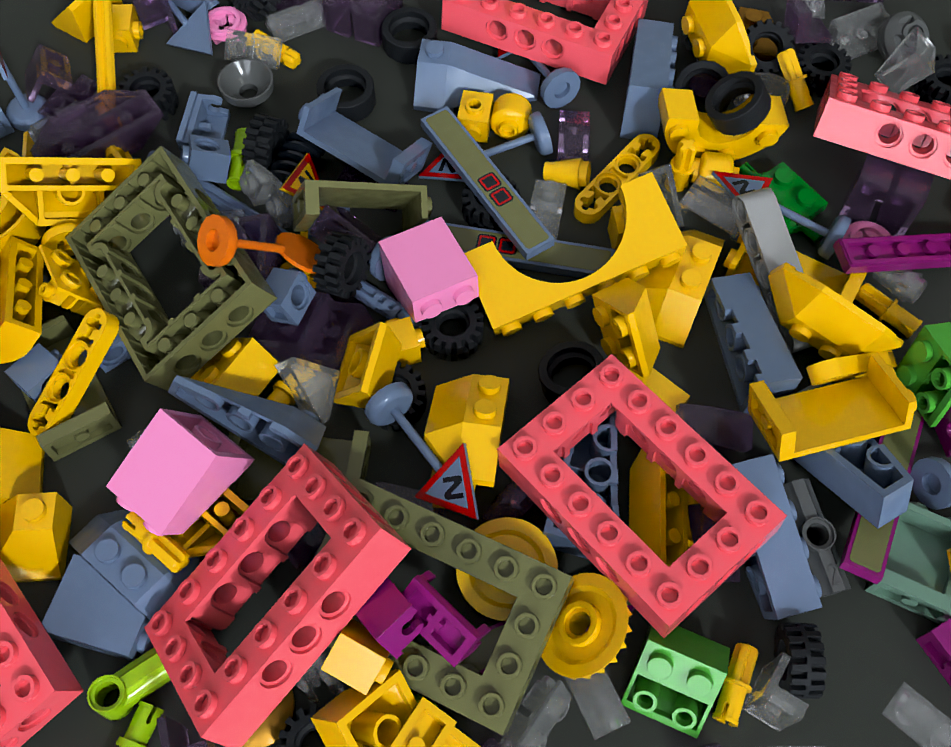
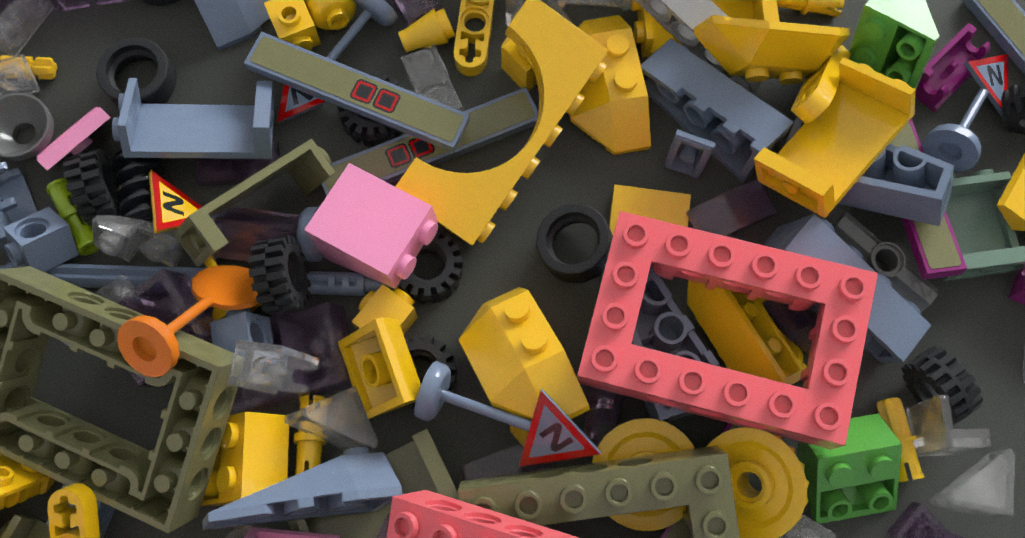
camera: 35 degrees left, 10 degrees up
(274, 105) = (73, 139): none -> bright pink plate
(288, 315) = (268, 367): none -> clear hinge
(627, 325) = (597, 163): yellow slope -> none
(707, 362) = (688, 154): none -> sand blue slope

